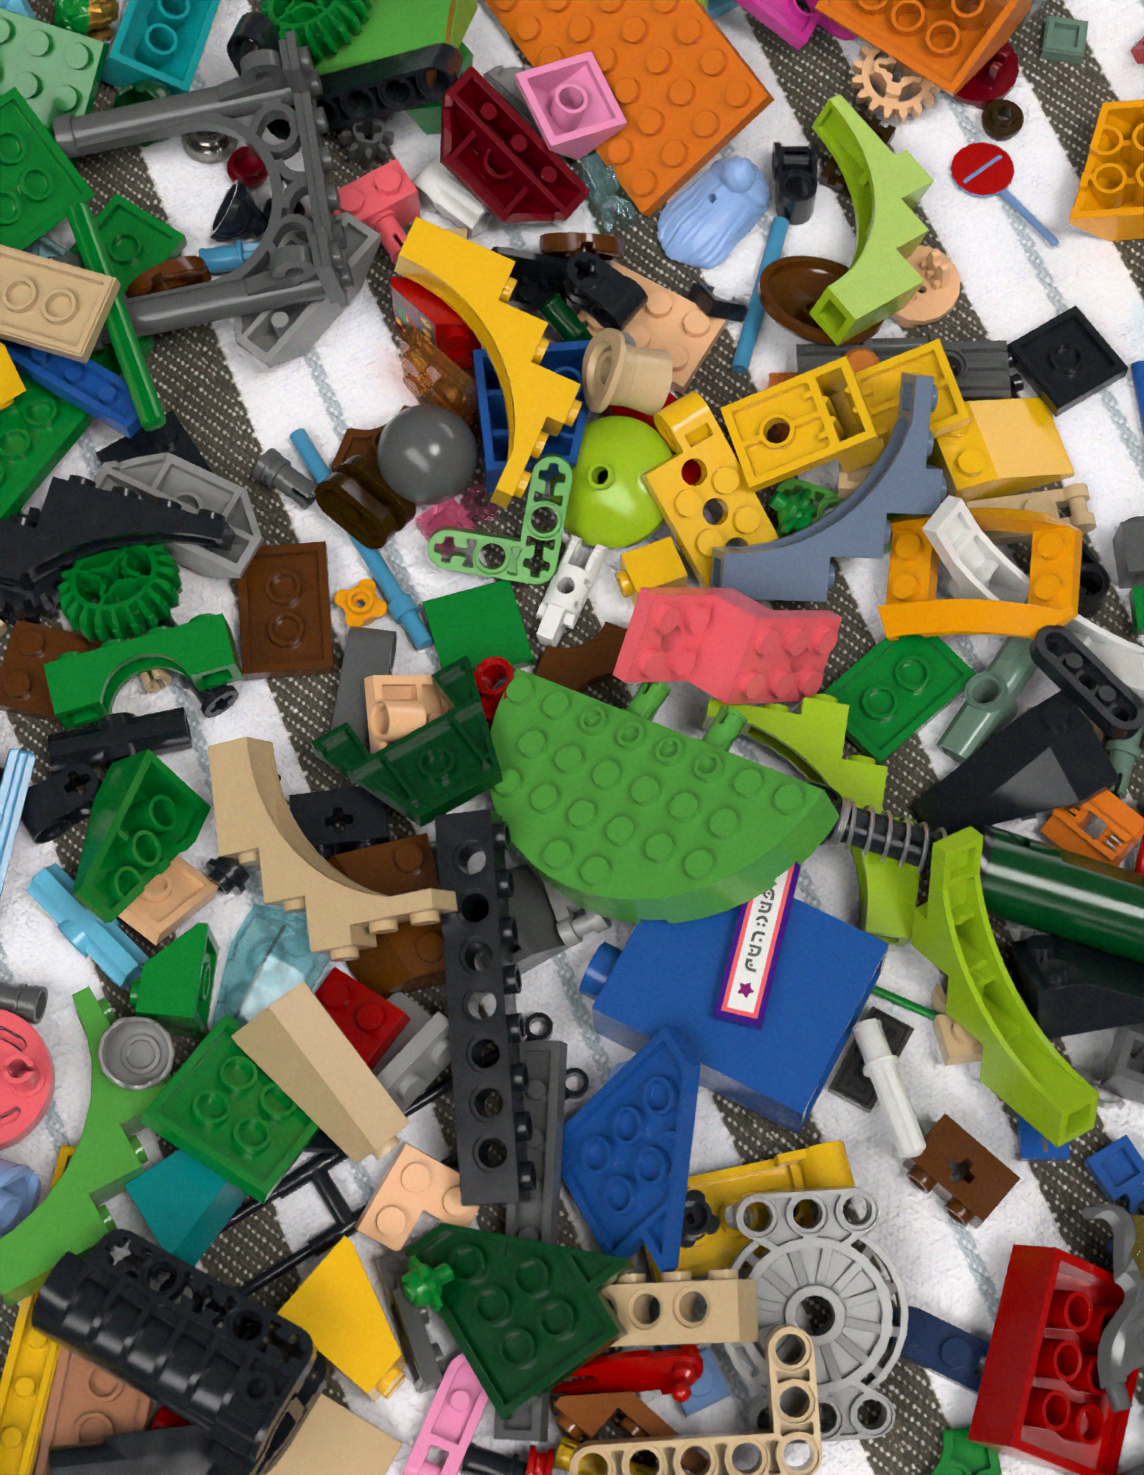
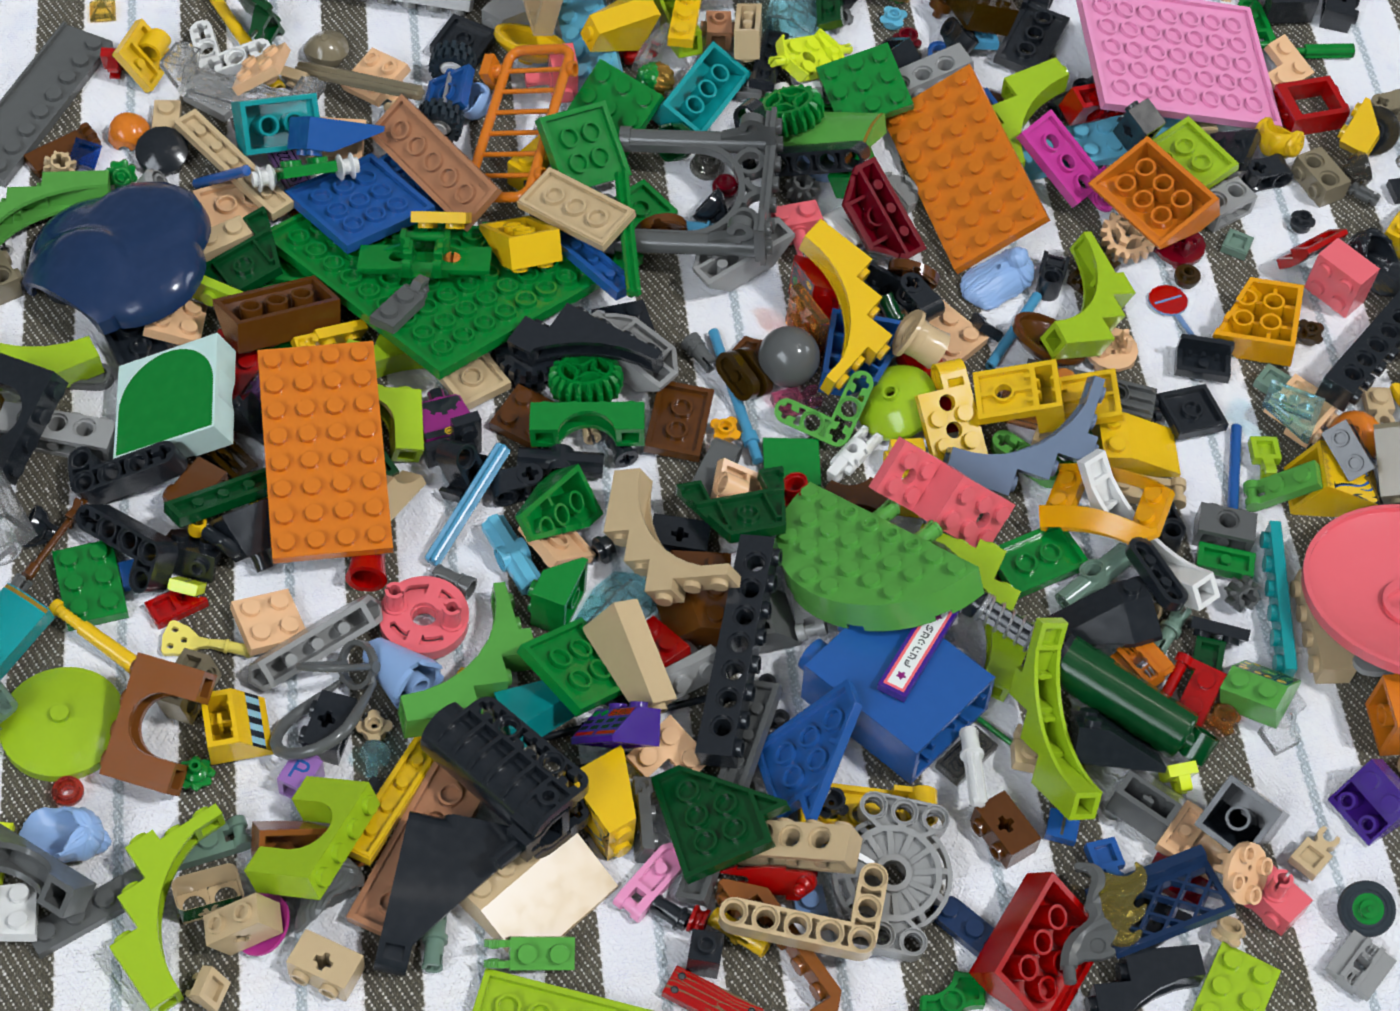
camera: 10 degrees right, 15 degrees down
(136, 1053) = (524, 617): light grey hair -> none
(335, 1203) = (621, 725): none -> dark purple slope
(425, 1283) = (659, 792): green plant -> none
(571, 104) = (928, 198): bright pink slope -> none
(603, 184) = (934, 249): clear light blue plate -> none
(793, 511) = (1001, 443): green plant -> none
(1062, 262) = (1203, 358): none -> black bracket

